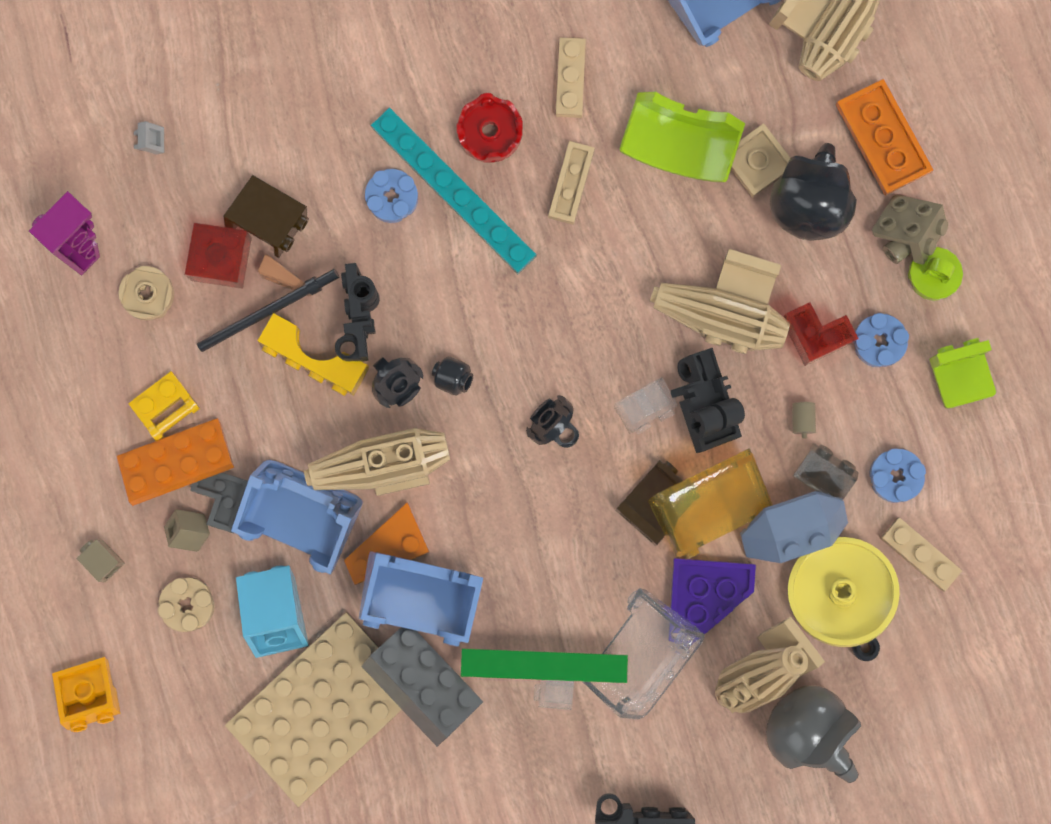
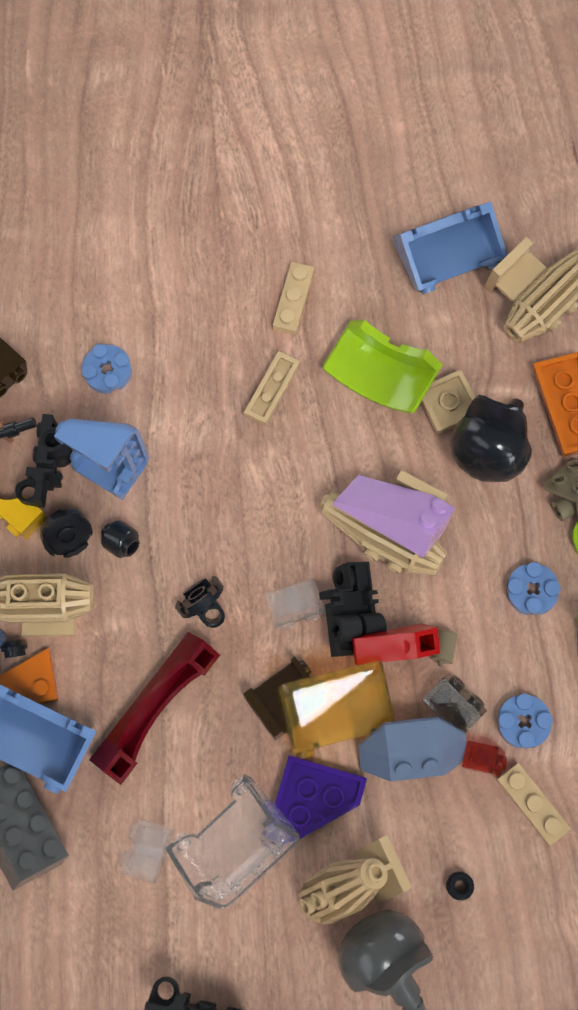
camera: 15 degrees right, 10 degrees down
(373, 511) = (14, 649): none -> black plate
(419, 293) = (105, 452): none -> medium blue windscreen
(453, 191) = (165, 377): teal plate -> none
(484, 111) = (204, 312): red plate -> none
(507, 584) = (120, 748): none -> dark red arch
(544, 665) = (136, 832): green tile -> none
(732, 293) = (397, 512): none -> lavender slope
(760, 427) = (397, 644): none -> red slope
(815, 340) = (470, 575): clear red brick -> none
(844, 593) = (447, 825): light yellow dish -> none
(866, 521) = (484, 758): none -> clear red bracket

